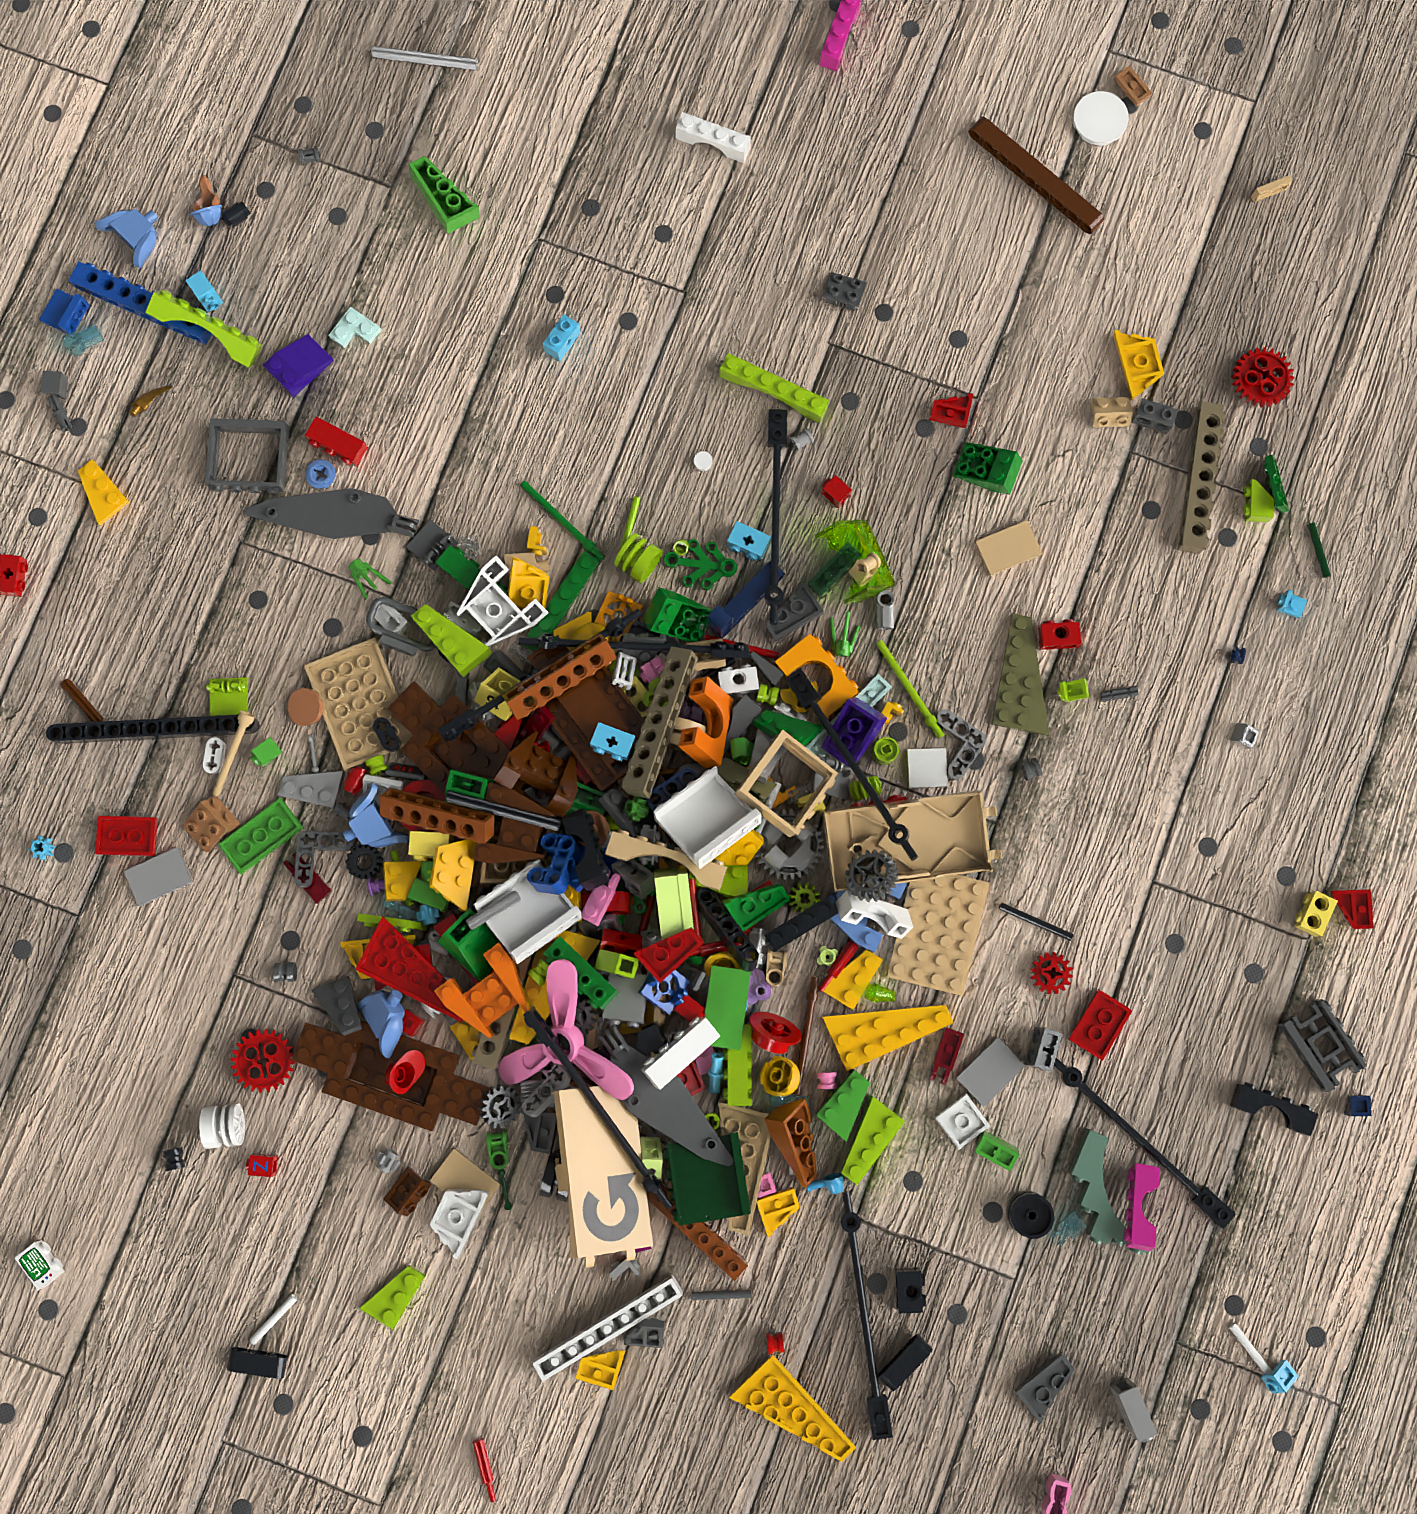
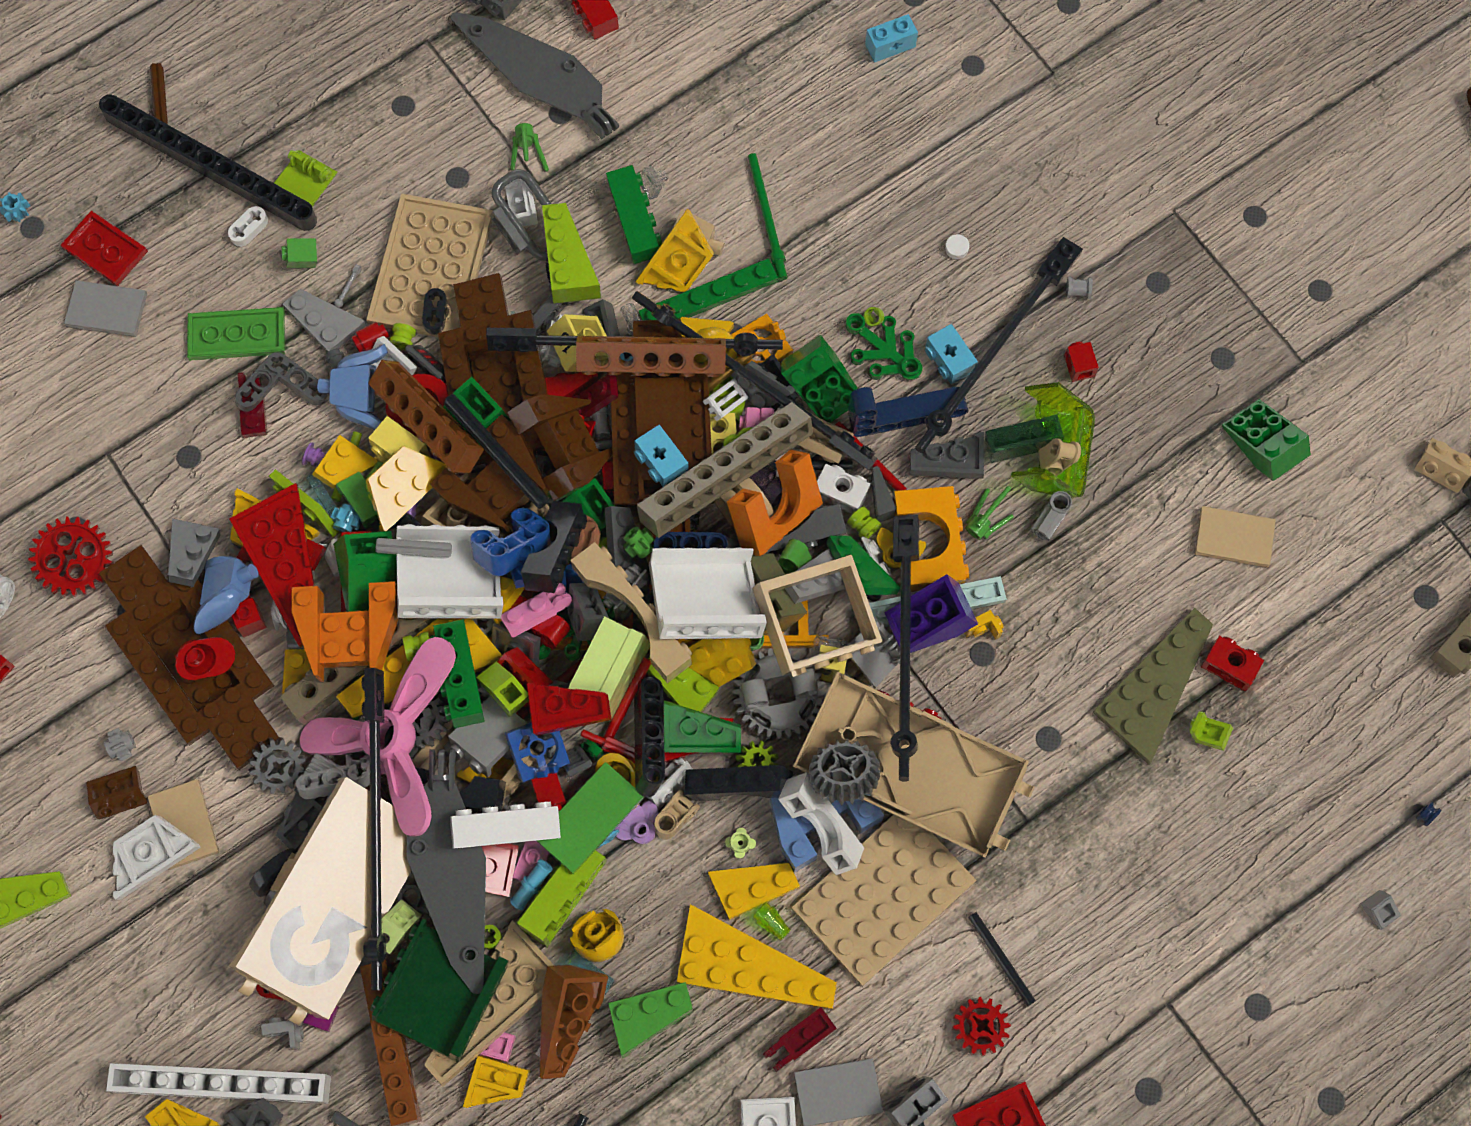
camera: 30 degrees right, 10 degrees down
(210, 823) = (195, 285): medium nougat bracket -> none
(245, 719) = (302, 205): tan piece -> none
(285, 972) = (159, 482): dark grey wheel -> none
(305, 707) = (373, 234): nougat tile -> none
(320, 466) = (558, 17): medium blue gear -> none
(372, 870) = (316, 411): black tyre -> none
(431, 543) = (615, 154): dark grey hinge -> none
(465, 621) = (598, 250): white hinge -> none
(495, 609) = (634, 255): white wedge -> none
(498, 1147) = (244, 810): bright green piece -> none
(507, 1206) = (209, 879): dark green hinge -> none
(534, 539) = (723, 217): yellow bracket -> none
(631, 519) = (836, 262): lime bar -> none
(641, 560) = (820, 297): lime wheel -> none
(746, 374) = (1105, 247): lime arch -> none
(769, 803) = (788, 634): white bar -> none
(773, 1032) = (623, 881): red wheel -> none
(812, 996) = (694, 875): reddish brown bar -> none
(827, 1080) = (647, 976): bright pink wheel -> none
(833, 1182) = (576, 1096): dark azure bar -> none
(839, 964) = (748, 858): red axle -> none
(844, 290) = (1226, 167): dark grey hinge -> none
(859, 793) = (892, 686): lime gear -> none
(871, 1138) = (654, 1073): lime wedge -> none
(885, 751) = (953, 661): lime wheel -> none
(927, 768) = (988, 712): white tile -> none
(930, 720) = (1026, 662): lime bar -> none
(952, 411) = (1264, 356): red wing -> none
(967, 746) = (1050, 716): light grey beam -> none
(1031, 769) = (1105, 786): dark grey wheel -> none
(1119, 693) = (1261, 769): dark grey axle -> none

